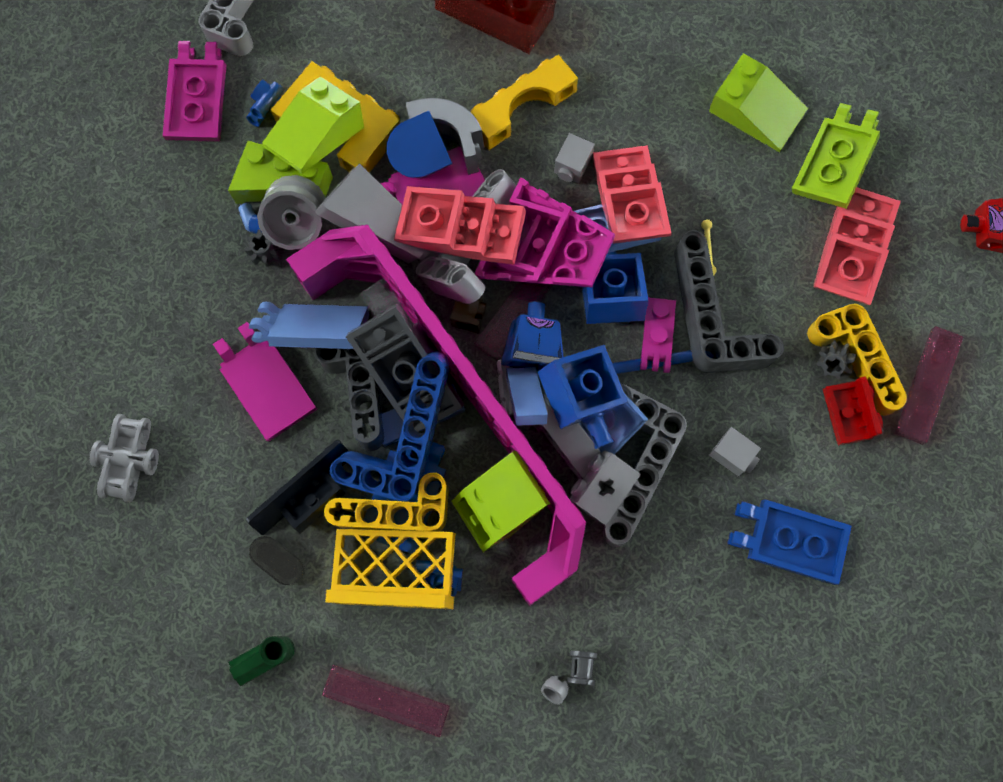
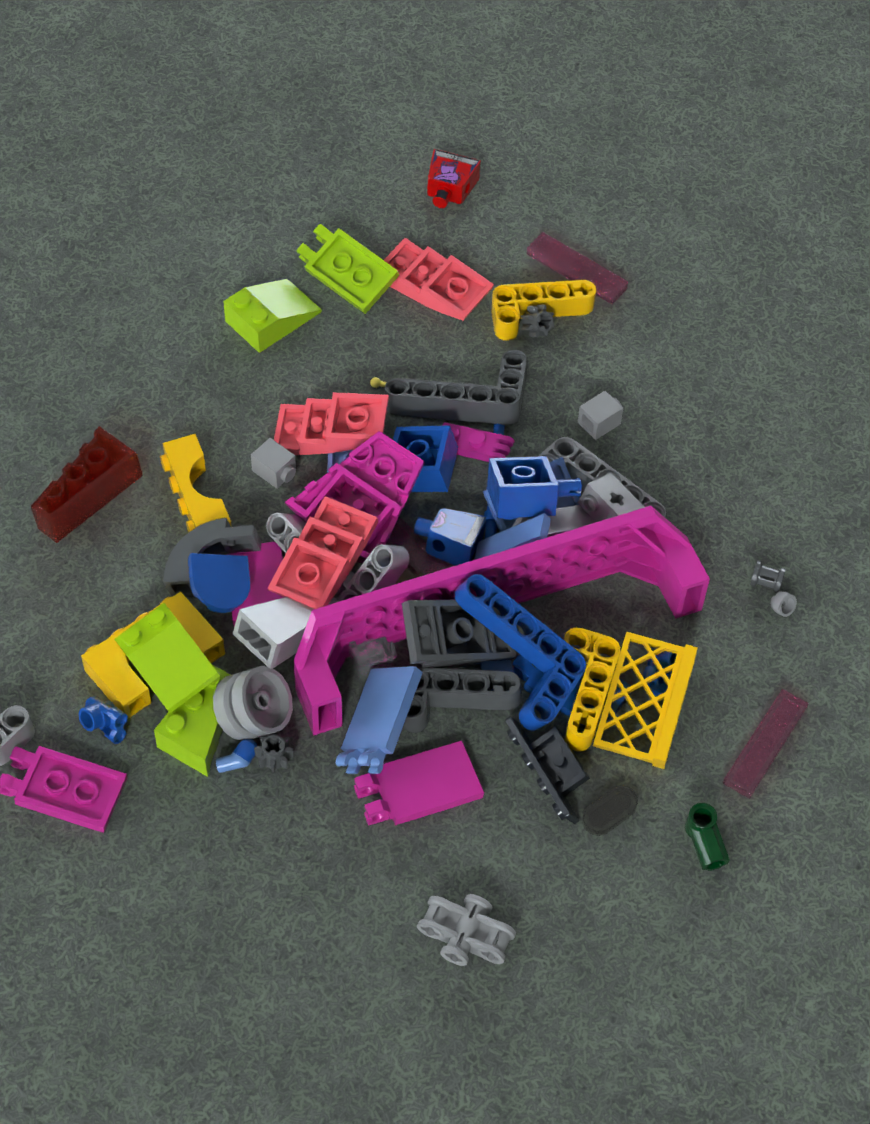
camera: 80 degrees left, 20 degrees down
(500, 501) = (607, 587): lime slope -> none
(794, 540) = (688, 398): blue tile -> none
(853, 411) = (586, 322): red bracket -> none

